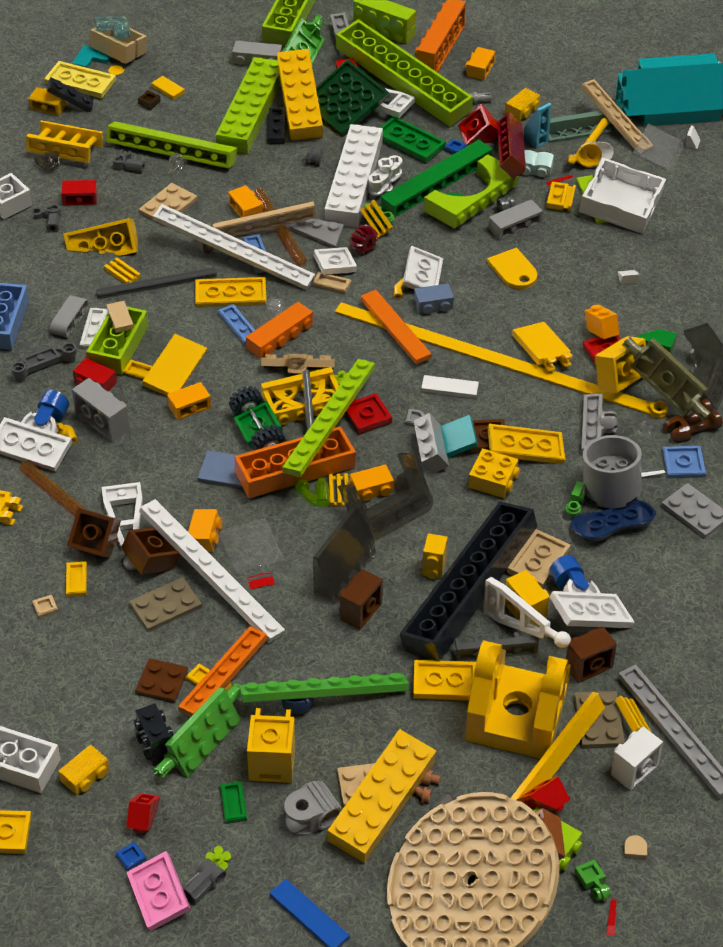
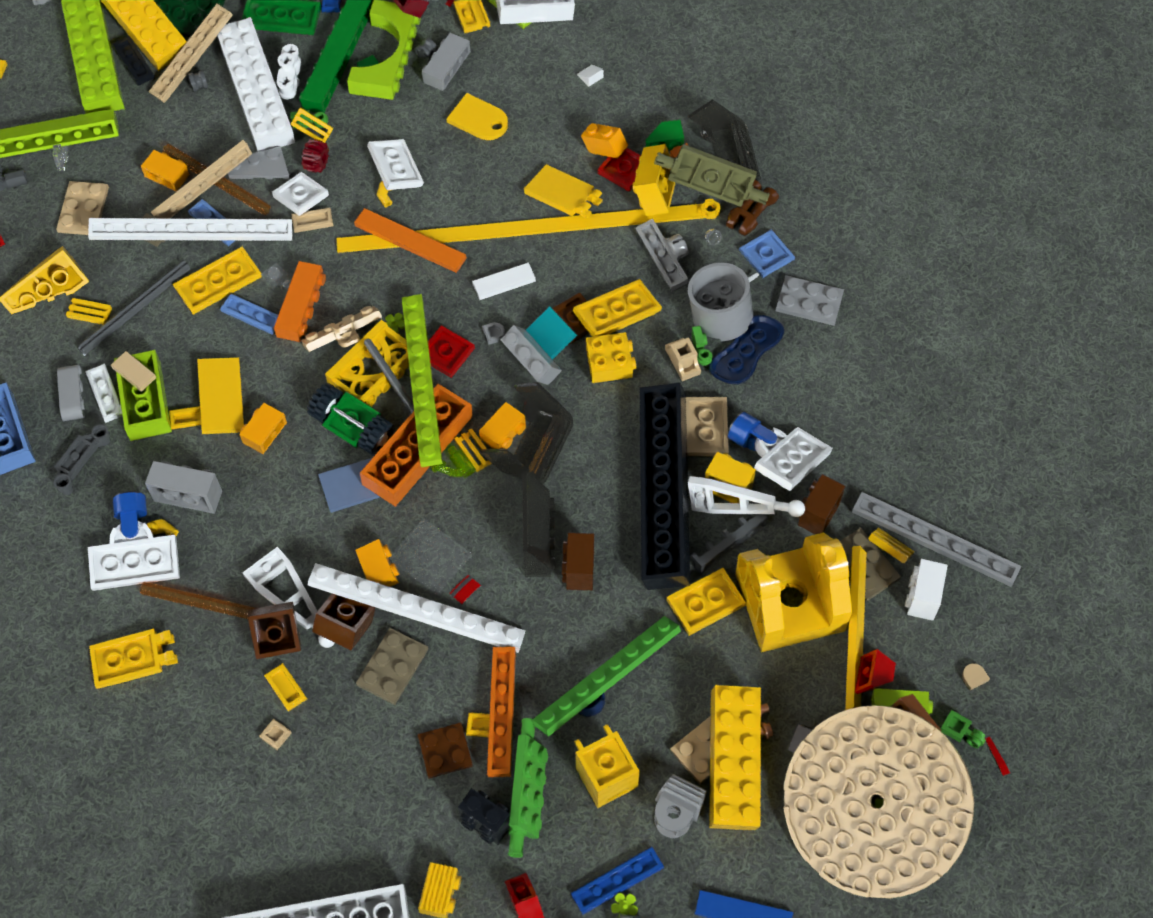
camera: 30 degrees left, 15 degrees up
(98, 373) = (146, 448): red brick -> none
(226, 837) = (617, 880): none -> blue tile
(233, 802) = (599, 839): green tile -> none
(320, 134) = (190, 53): none -> tan tile
(433, 298) = (426, 190): sand blue brick -> none
(434, 556) = (617, 478): yellow brick -> none
(555, 501) = (683, 358): none -> tan brick

